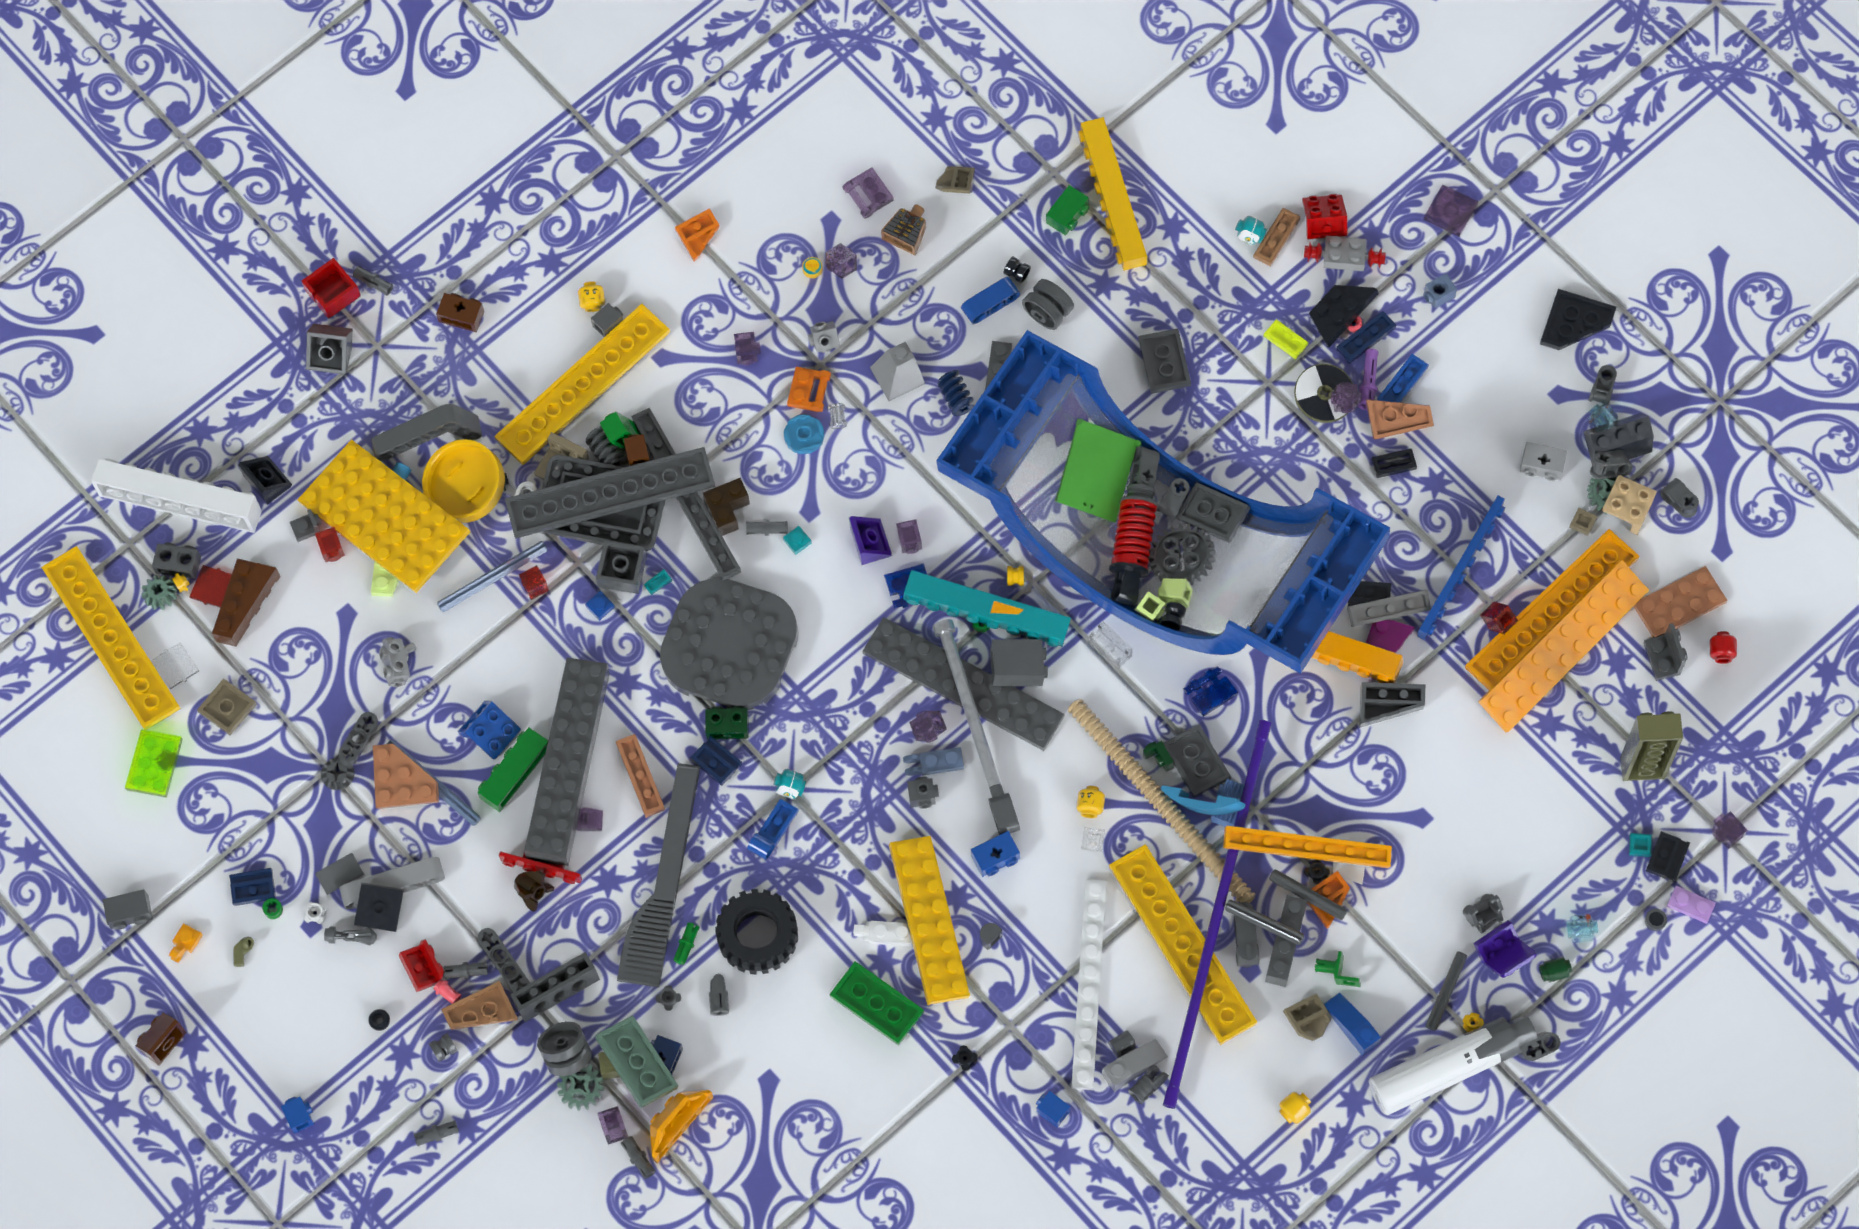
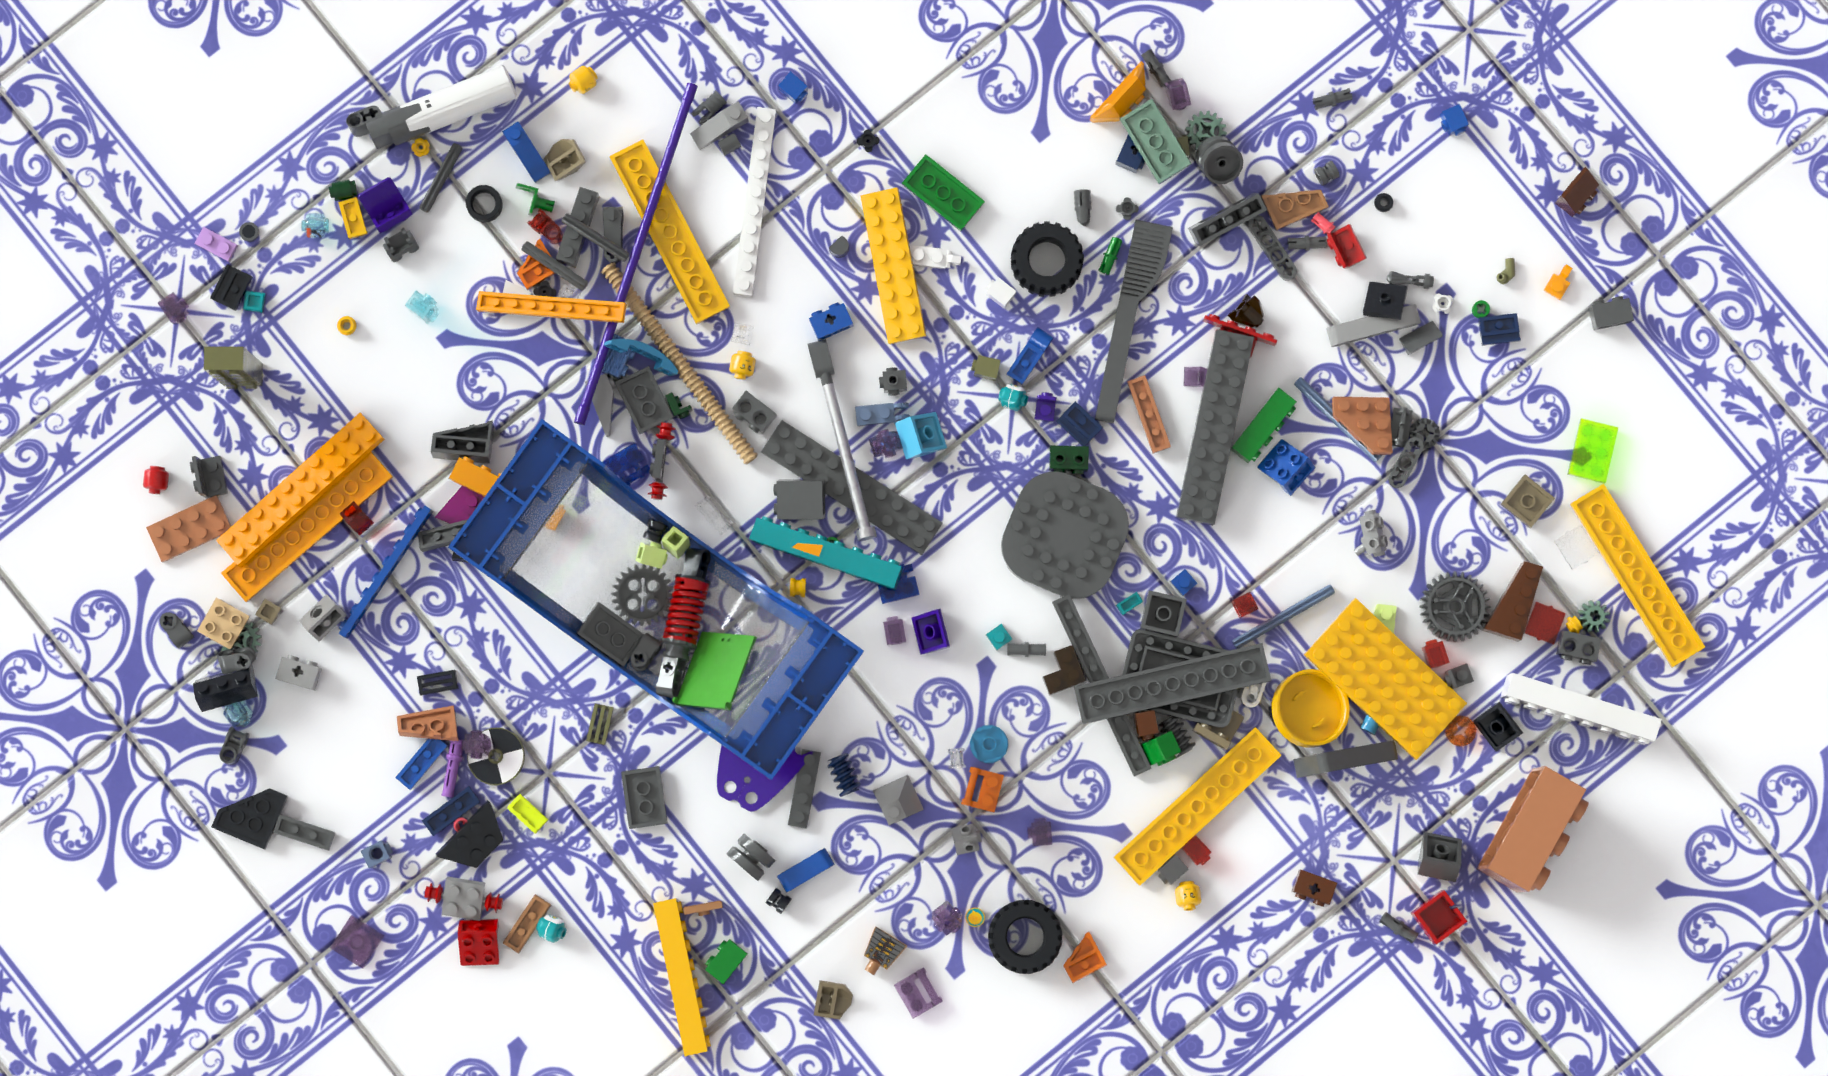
camera: 175 degrees right, 15 degrees up
(231, 365) = (1533, 830): none -> nougat brick
(299, 578) = (1440, 606): none -> dark grey gear
(301, 481) = (1460, 740): none -> clear orange gear
(363, 778) = (1400, 426): none -> dark grey hinge
(582, 339) = (1196, 851): none -> clear red brick
(754, 777) = (1045, 407): none -> dark purple bracket
(755, 223) = (1025, 963): none -> black tyre
(807, 896) = (1000, 292): none -> white brick
(820, 814) = (986, 367): none -> olive brick
(889, 738) = (920, 435): none -> medium azure slope
(1070, 757) = (757, 408): none -> dark grey brick
(1094, 258) = (703, 909): none -> medium nougat plate
(1176, 689) = (659, 453): none -> plate
(1219, 415) = (592, 722): none -> olive tile
(1240, 754) = (603, 402): none -> light grey slope
(1291, 867) = (569, 292): none -> clear tile
(1323, 941) = (543, 225): none -> clear red piece
(1394, 979) = (484, 189): none -> black tyre
(1450, 840) = (423, 307): none -> clear light blue brick
(1518, 308) = (304, 832): none -> dark grey plate
(1523, 515) = (322, 618): none -> light grey brick
(1534, 817) = (346, 319): none -> yellow plate
(1540, 939) = (353, 218): none -> yellow plate

